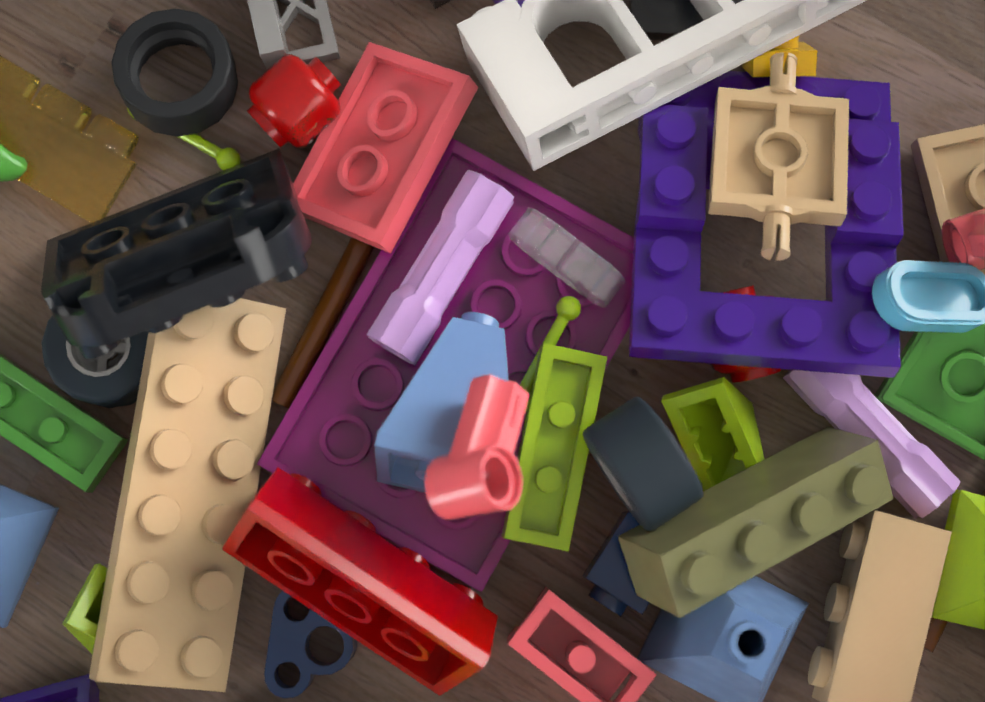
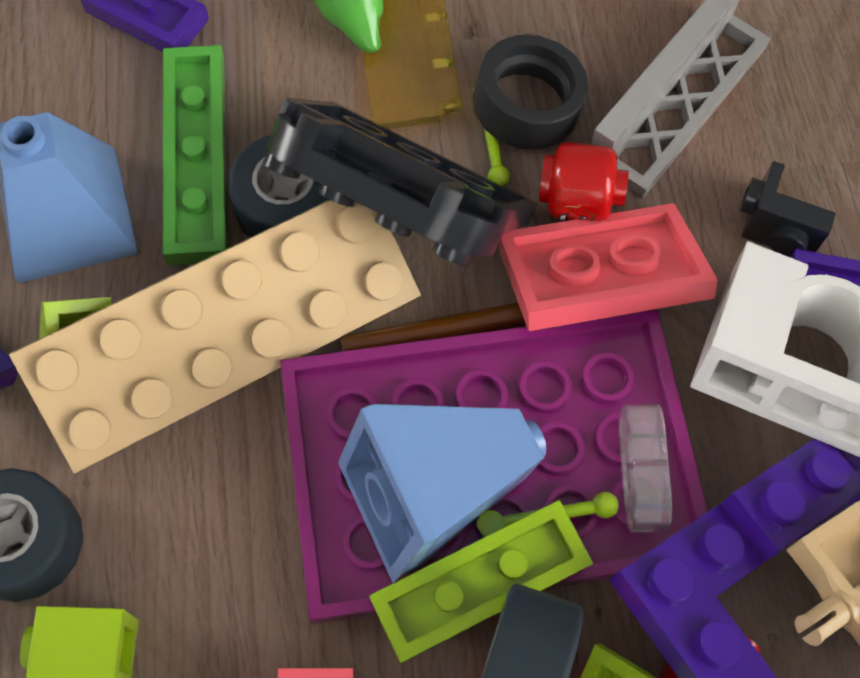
camera: 50 degrees right, 15 degrees down
(290, 643) = (155, 495): dark blue piece -> none
(363, 583) = (244, 505): red slope -> none
(418, 304) = (598, 370): lavender axle -> none
(481, 467) = (416, 498): coral piece -> none

